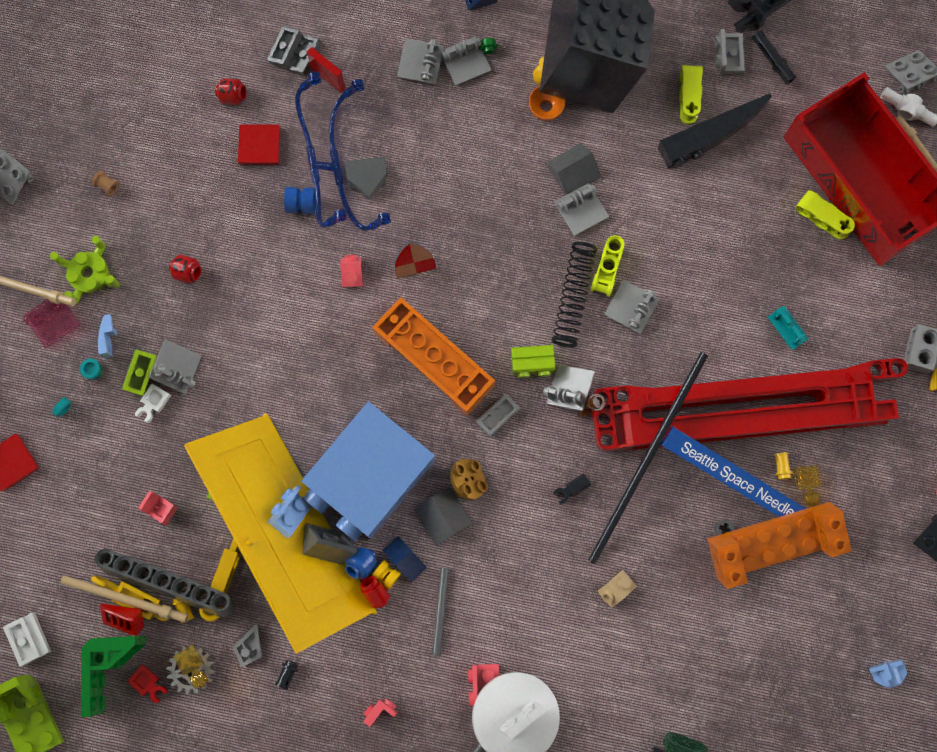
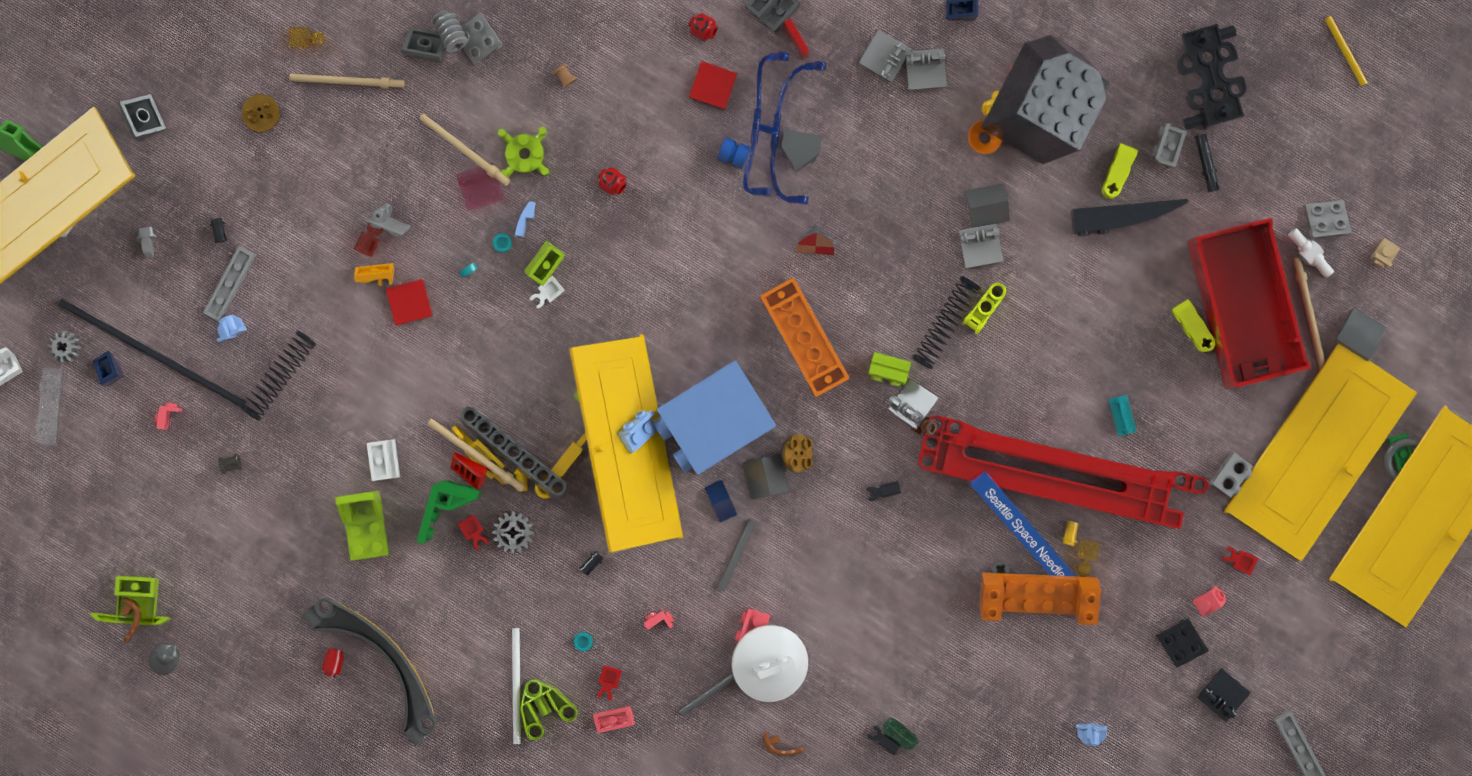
camera: 15 degrees right, 10 degrees up
(158, 507) = (526, 386): coral bracket -> none
(175, 367) = (577, 268): light grey hinge -> none
(188, 662) = (515, 526): clear yellow plate -> none
(248, 647) = (566, 530): light grey piece -> none
(327, 544) = (660, 467): dark grey slope -> none
(351, 271) = (758, 232): coral bracket -> none
(361, 563) = (683, 493): blue head -> none
(374, 592) = (687, 521): red brick -> none
(383, 570) = (698, 506): yellow wheel -> none
(488, 45) = (951, 62): green plate -> none
(497, 415) = (842, 405): light grey plate -> none
(617, 589) = (891, 587): tan bracket -> none
(632, 306) = (993, 349): light grey hinge -> none
(648, 457) = (956, 489): black piece -> none

